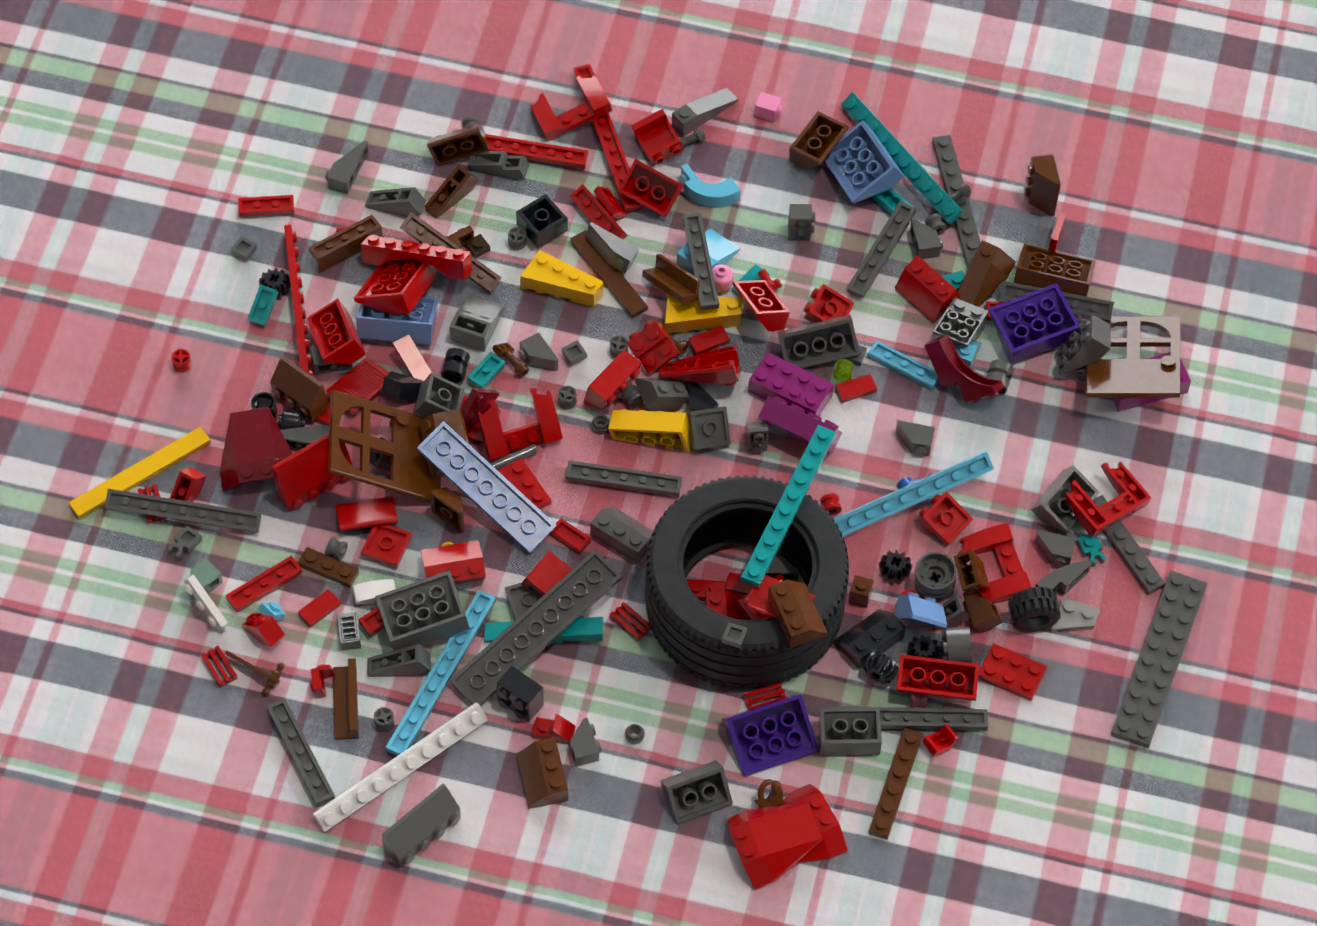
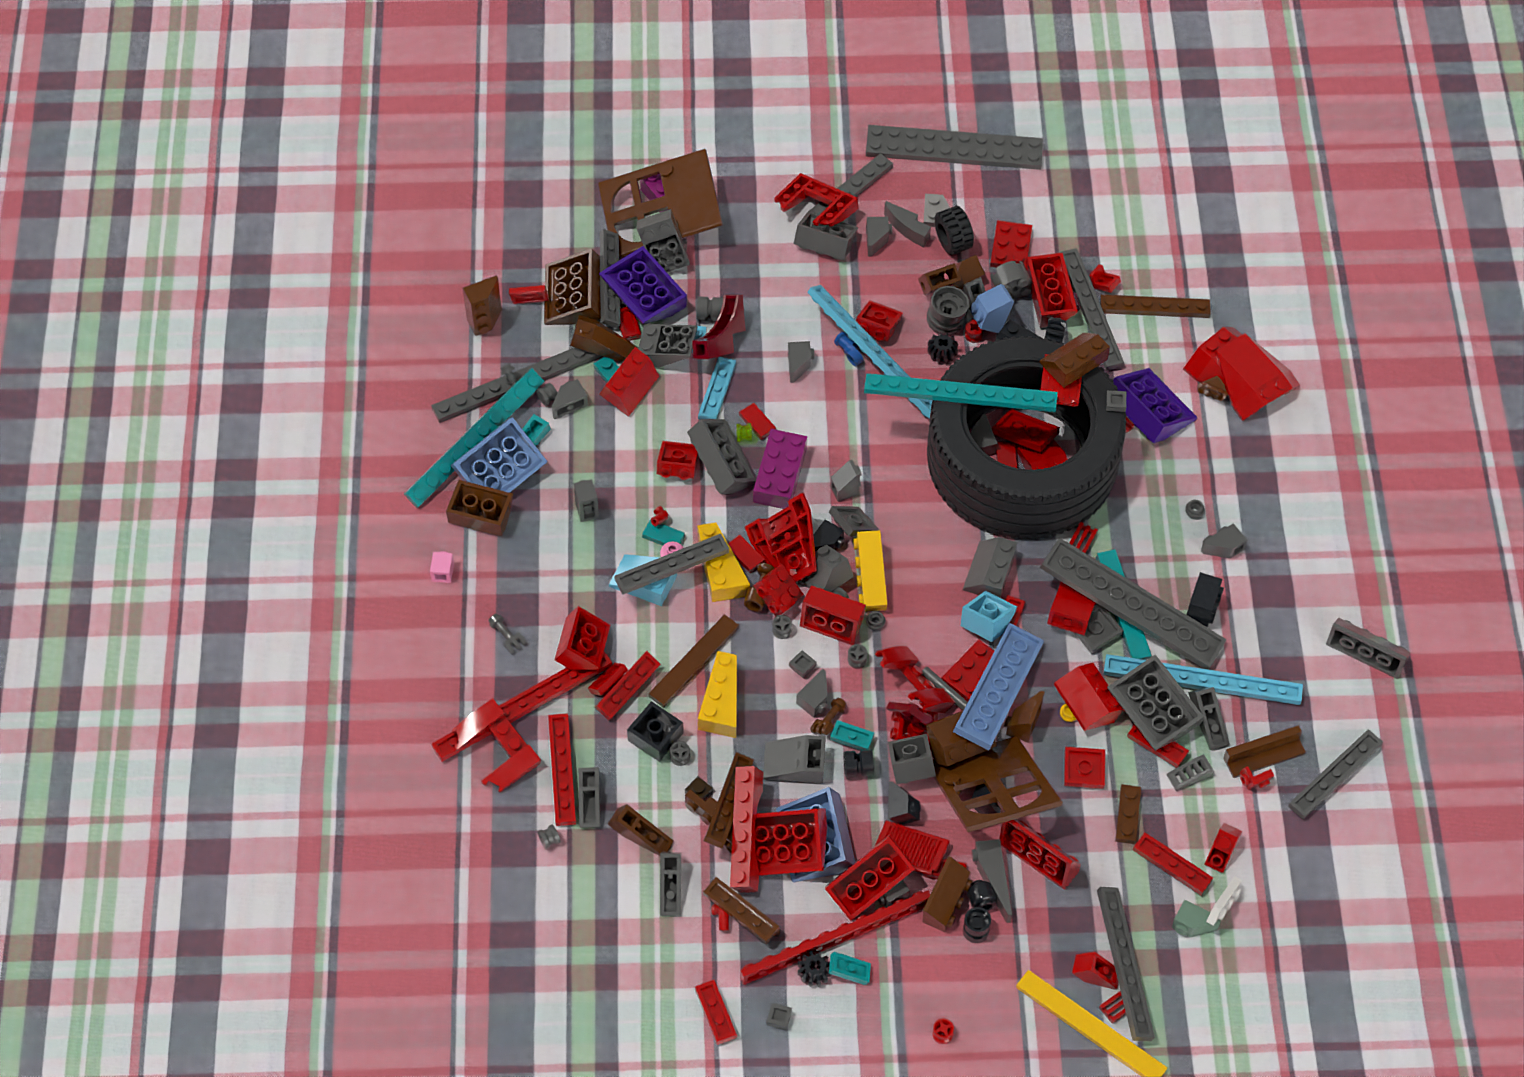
camera: 105 degrees left, 0 degrees up
(185, 540) = (1153, 952): dark grey plate -> none
(212, 653) = (1286, 865): red tile -> none
(251, 448) = (1035, 914): dark red wedge -> none
(272, 609) = (1201, 845): medium azure plate -> none
(273, 678) = (1273, 824): reddish brown piece -> none
(319, 608) = (1176, 807): red tile -> none
(336, 548) = (1108, 809): dark grey wheel -> none
(347, 168) = (645, 944): dark grey slope -> none
(365, 592) = (1141, 763): white slope -> none
(366, 513) = (1073, 802): red piece -> none
(386, 715) = (1271, 708): dark grey wheel -> none
(400, 767) = (1321, 686): white plate -> none
(411, 358) = (867, 802): tile -> none
(458, 144) = (581, 835): reddish brown slope -> none
(542, 773) = (1268, 567): reddish brown slope -> none
(559, 728) = (1220, 568): red slope -> none
(569, 507) = (987, 616): none -> medium azure slope
(612, 248) = (670, 657): dark grey slope -> none
(623, 478) = (931, 584): dark grey plate -> none
(657, 137) = (514, 654): red panel -> none
(673, 280) = (698, 588): reddish brown panel -> none
(697, 791) = (1230, 446): dark grey slope -> none
(701, 110) = (462, 625): dark grey slope -> none
(708, 194) = (567, 583): medium azure arch -> none
(764, 303) = (698, 504): red slope -> none
(795, 420) = (825, 445): magenta brick -> none
(831, 504) = (897, 410): red wheel -> none
(849, 731) = (1129, 341): dark grey slope -> none
(881, 249) = (595, 427): dark grey plate -> none
(920, 645) = (1022, 309): black gear -> none
(999, 540) = (884, 278): red wedge -> none
(1091, 547) = (859, 217): teal plate -> none

